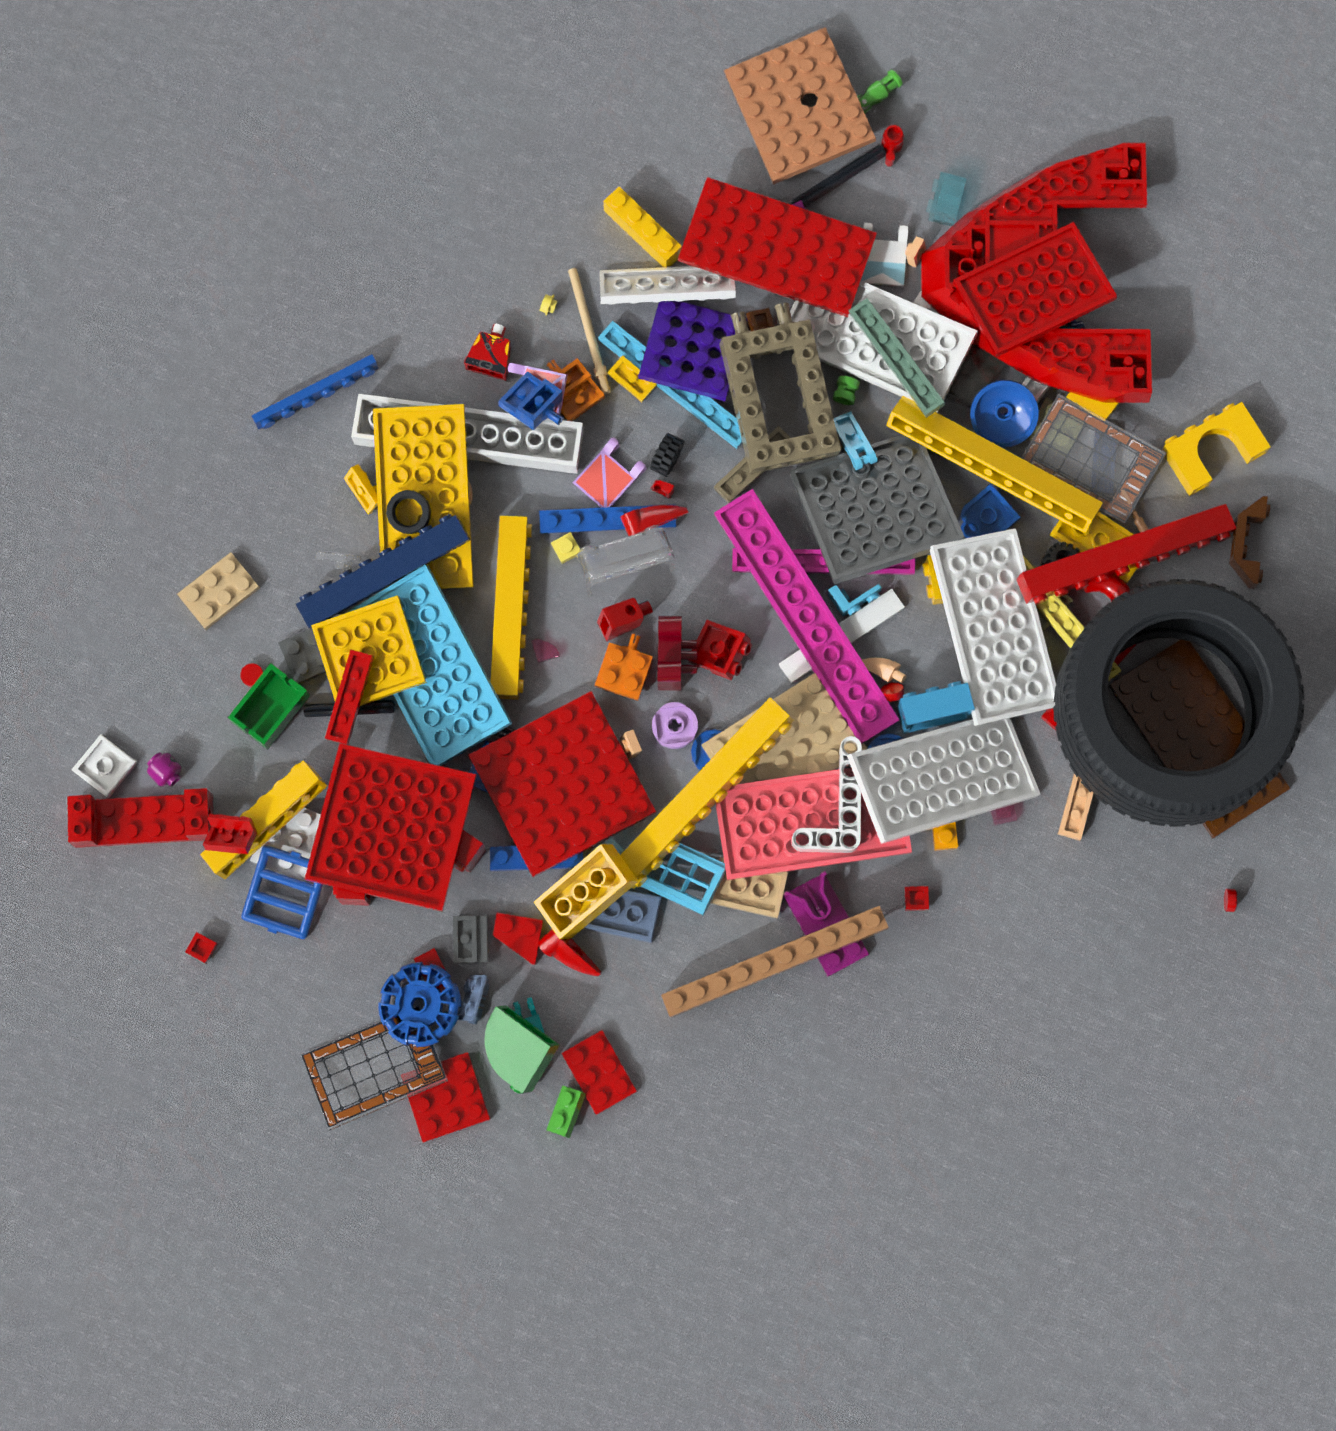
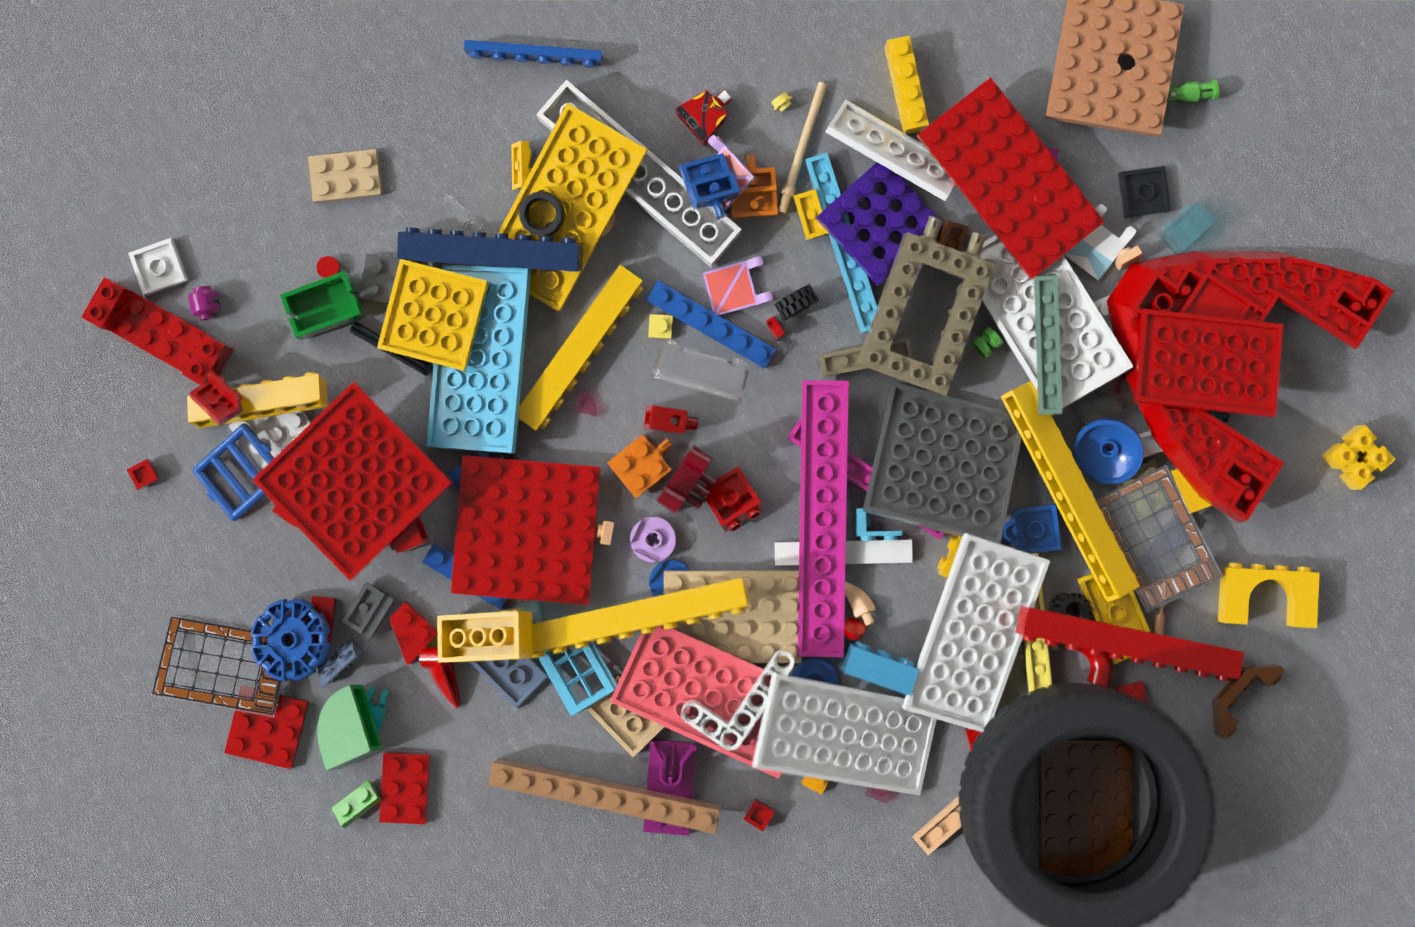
camera: 35 degrees right, 10 degrees up
(349, 697) = (391, 343): red plate -> none
(640, 519) = (746, 348): red piece -> none
(841, 176) = (1107, 148): black axle -> none
(854, 440) = (964, 392): medium azure plate -> none
(892, 143) = (1172, 146): red piece -> none
(893, 193) = (1144, 192): none -> black tile
(1198, 297) = (1344, 457): none -> yellow brick

